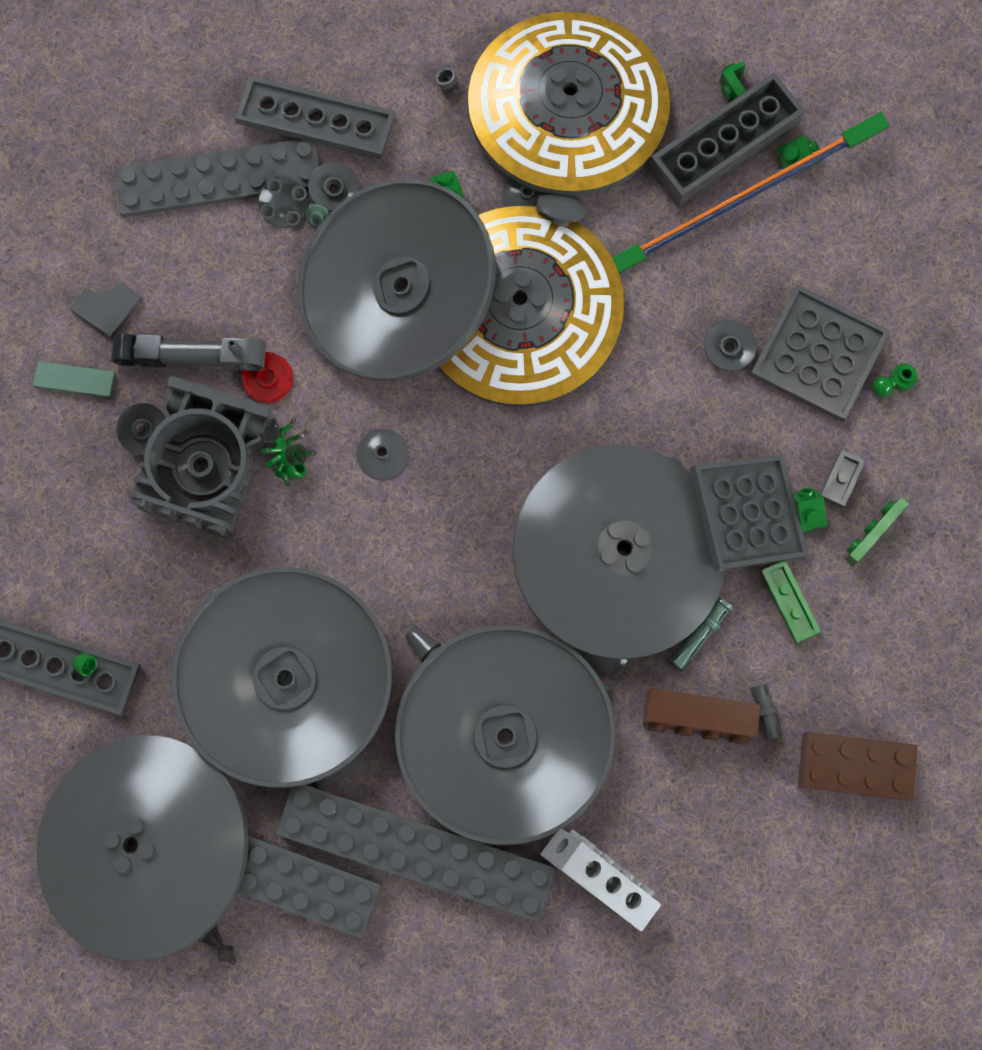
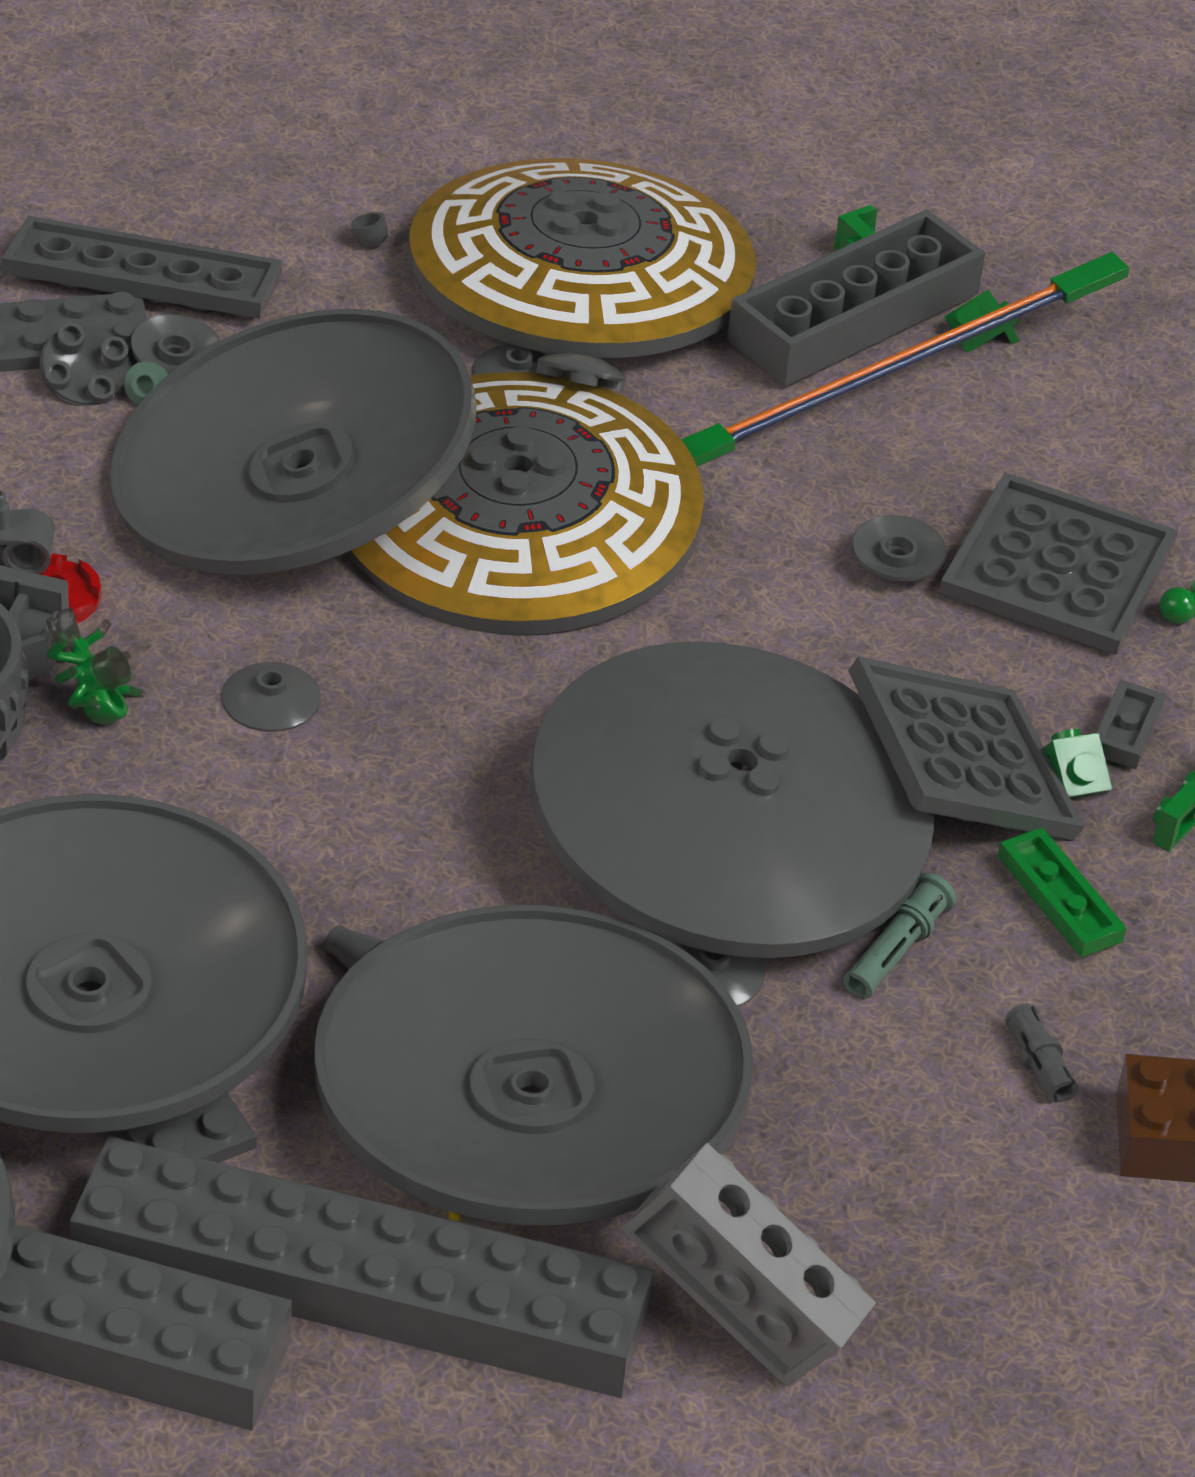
camera: 10 degrees left, 35 degrees down
(702, 715) = (915, 1035): reddish brown brick -> none

